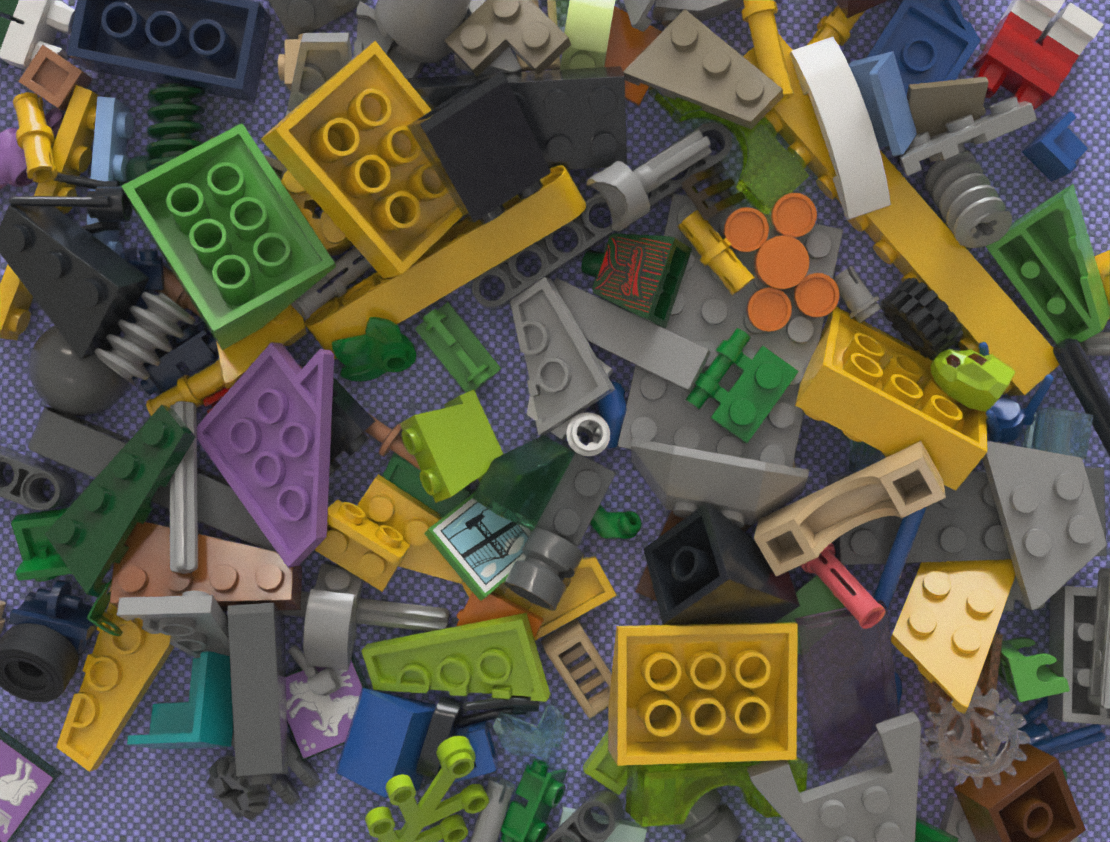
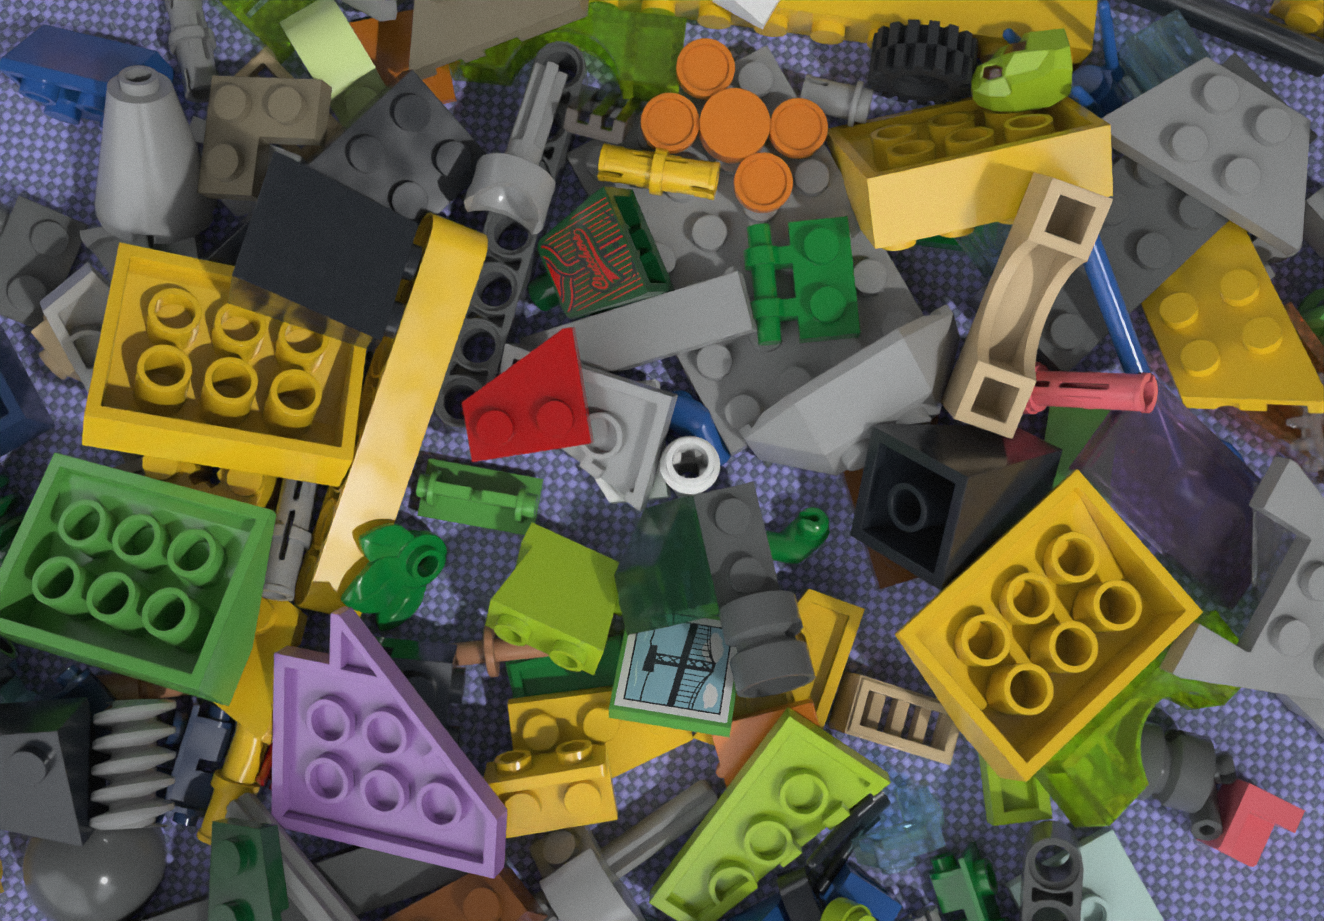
camera: 45 degrees left, 5 degrees down
(529, 325) = (531, 404): none -> red wing

